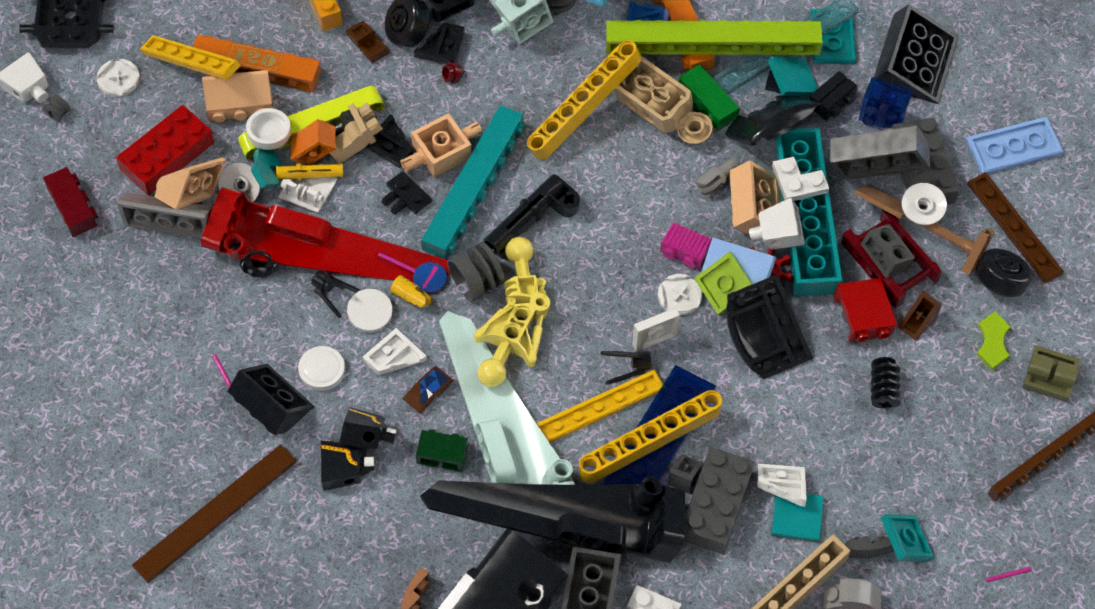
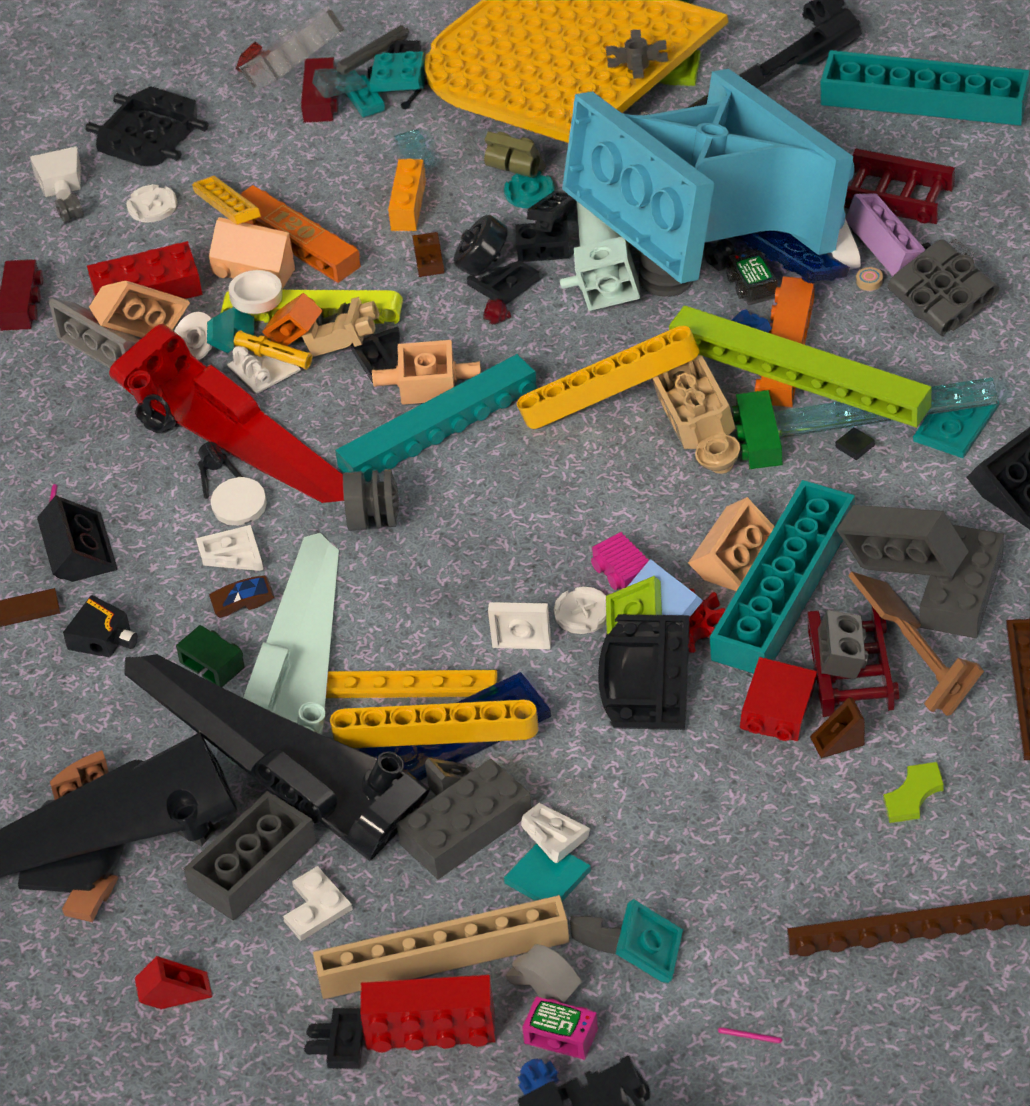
camera: 35 degrees right, 15 degrees down
(321, 368) = (149, 536): white piece -> none
(365, 429) = (141, 601): black torso -> none
(408, 192) = (363, 409): black hinge -> none
(410, 292) = (292, 498): yellow hinge -> none
(429, 276) = (320, 494): blue piece -> none
(522, 301) = (381, 570): light yellow piece -> none
(531, 210) = (477, 467): black piece -> none
(639, 360) = (485, 653): black plant -> none
(715, 178) = (703, 507): light grey arm -> none
(773, 120) = (812, 468): black slope -> none
(779, 226) = (730, 570): white torso -> none
(792, 76) = (872, 441): teal tile -> none
(794, 184) = (782, 539): white plate -> none
(834, 95) = (906, 477): black brick -> none
(884, 104) = (958, 496): clear blue brick -> none
(885, 383) = (745, 781): black piece -> none
(927, 195) = (920, 603): white dish -> none
(1003, 272) = (972, 723): black wheel -> none
(1051, 373) = (955, 849): olive plate -> none

